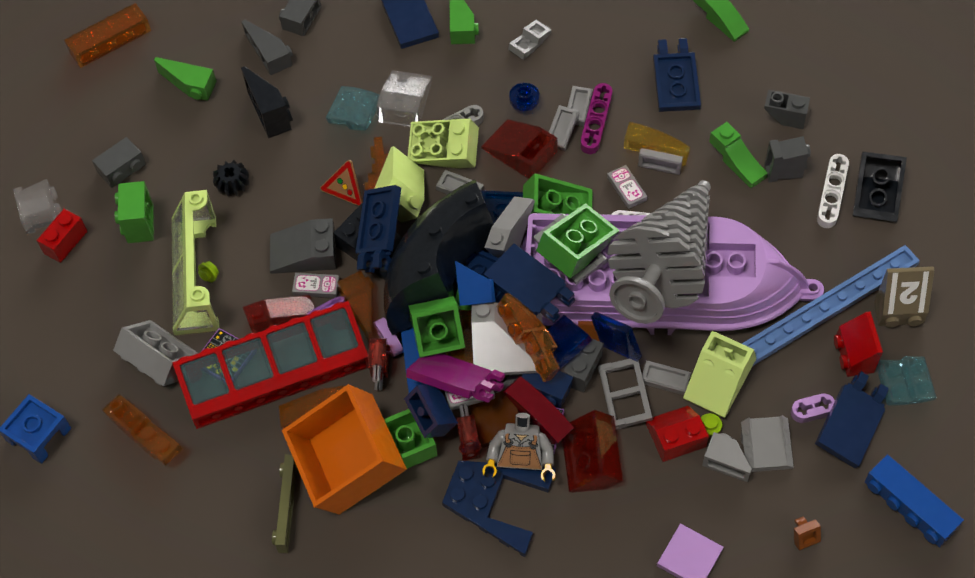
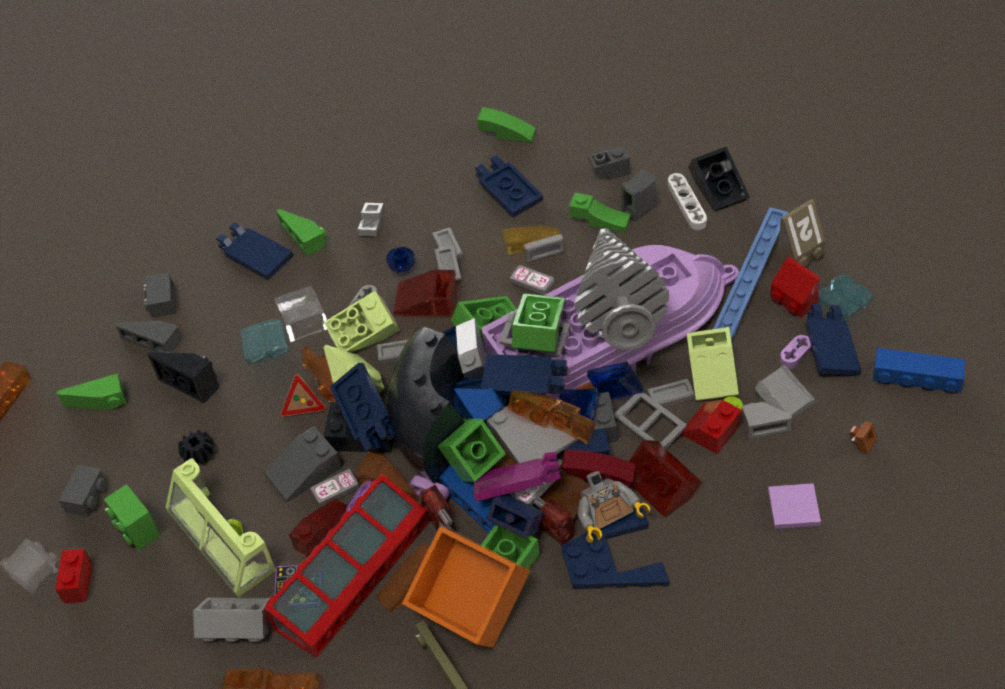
camera: 30 degrees left, 10 degrees down
(596, 118) = (469, 245): magenta beam -> none

